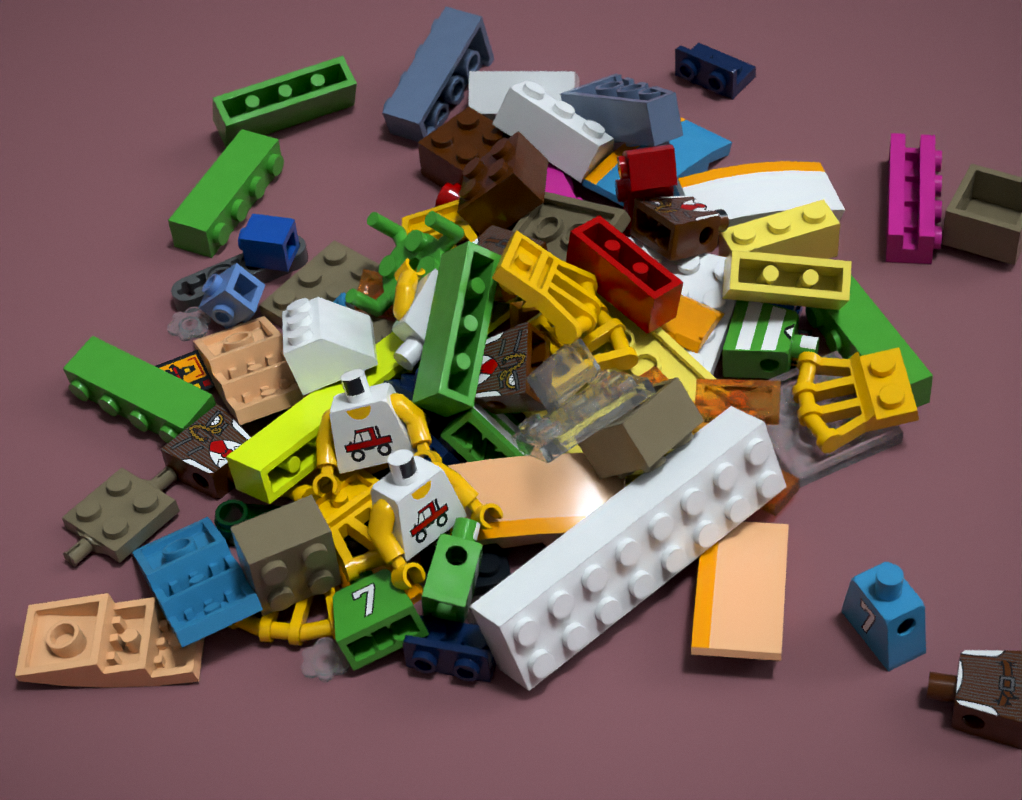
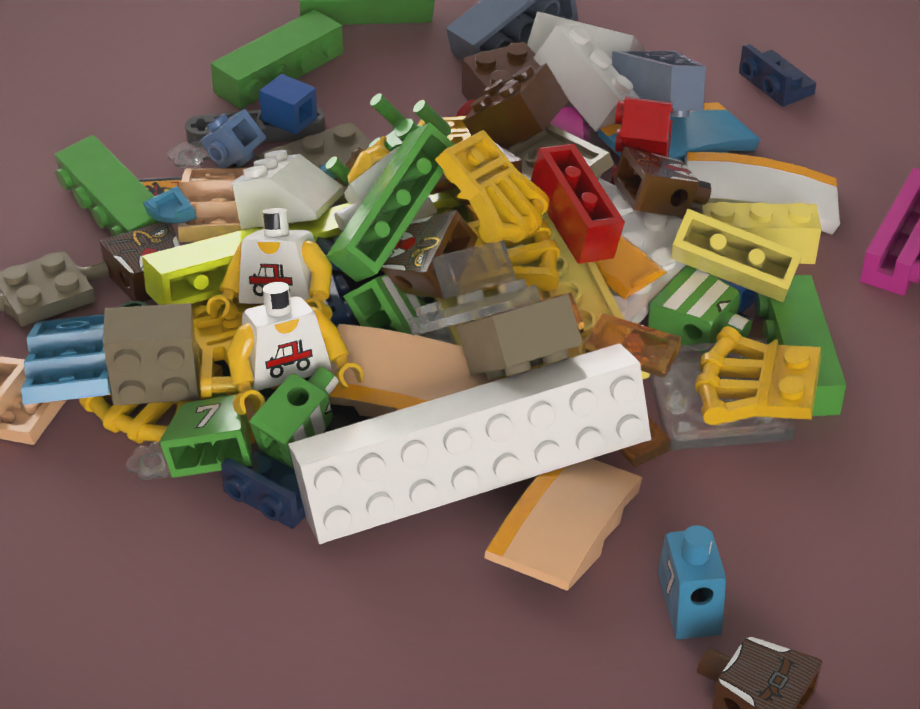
camera: 15 degrees right, 5 degrees down
(217, 392) = (170, 207): none -> dark azure tile

